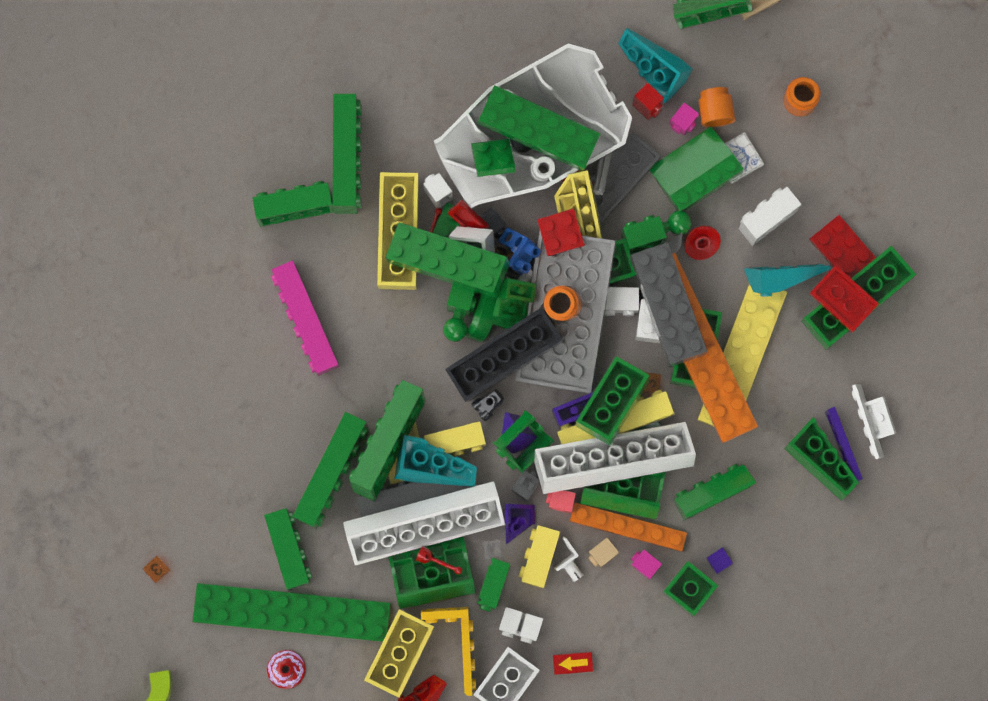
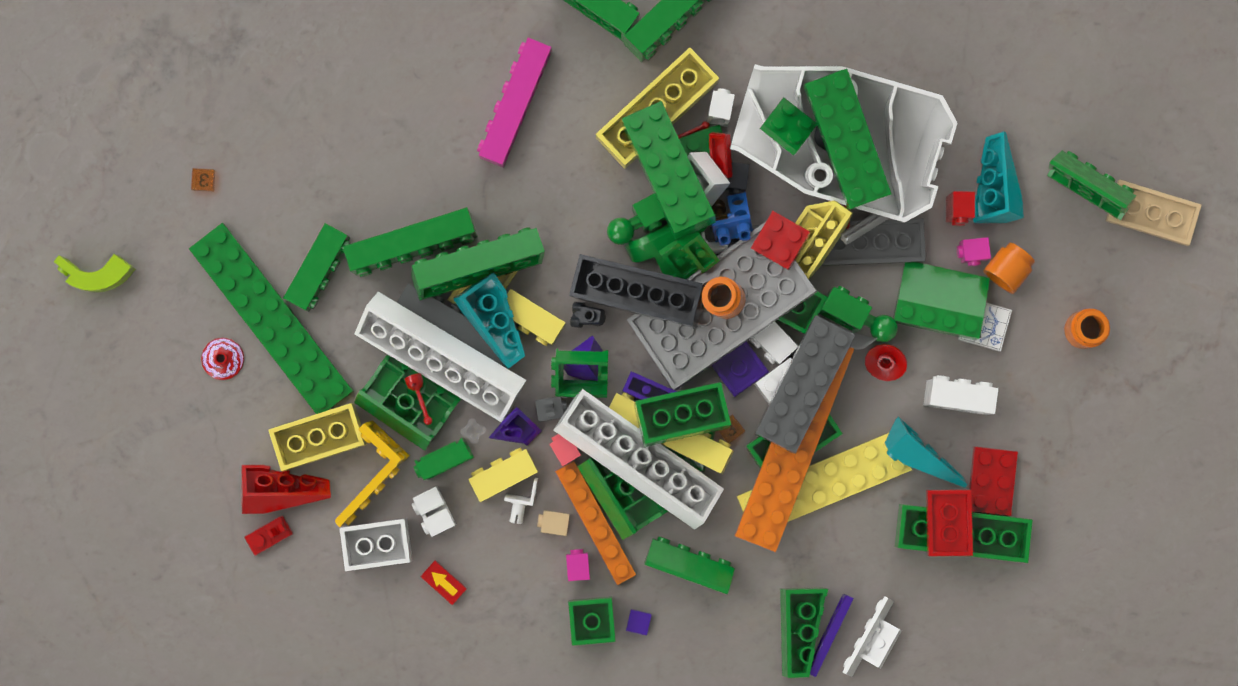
camera: 45 degrees right, 5 degrees up
(617, 339) = (740, 369): none -> dark purple tile

